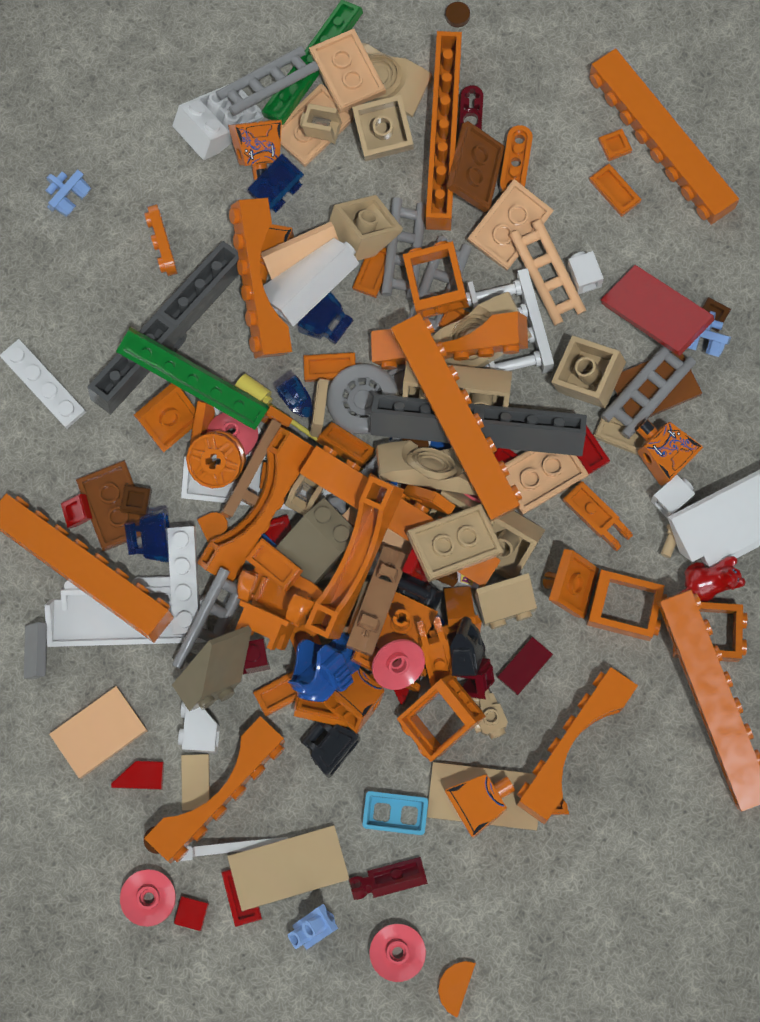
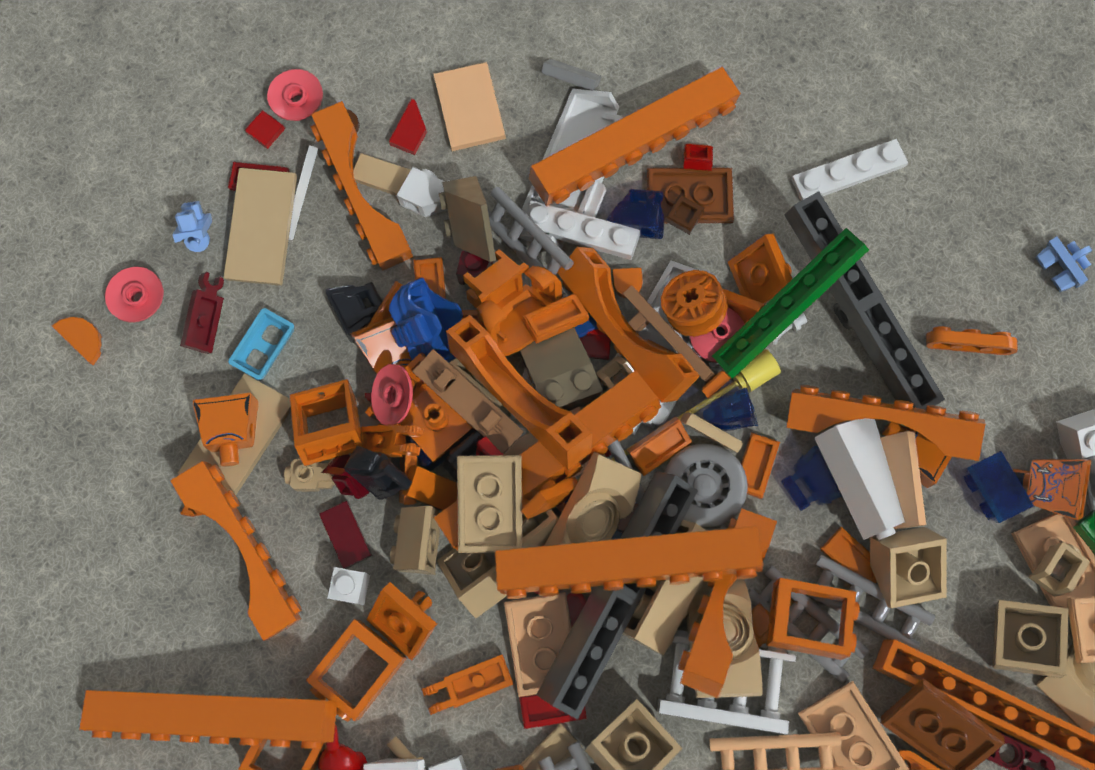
camera: 110 degrees right, 0 degrees up
(565, 640) = (349, 586): none -> white brick

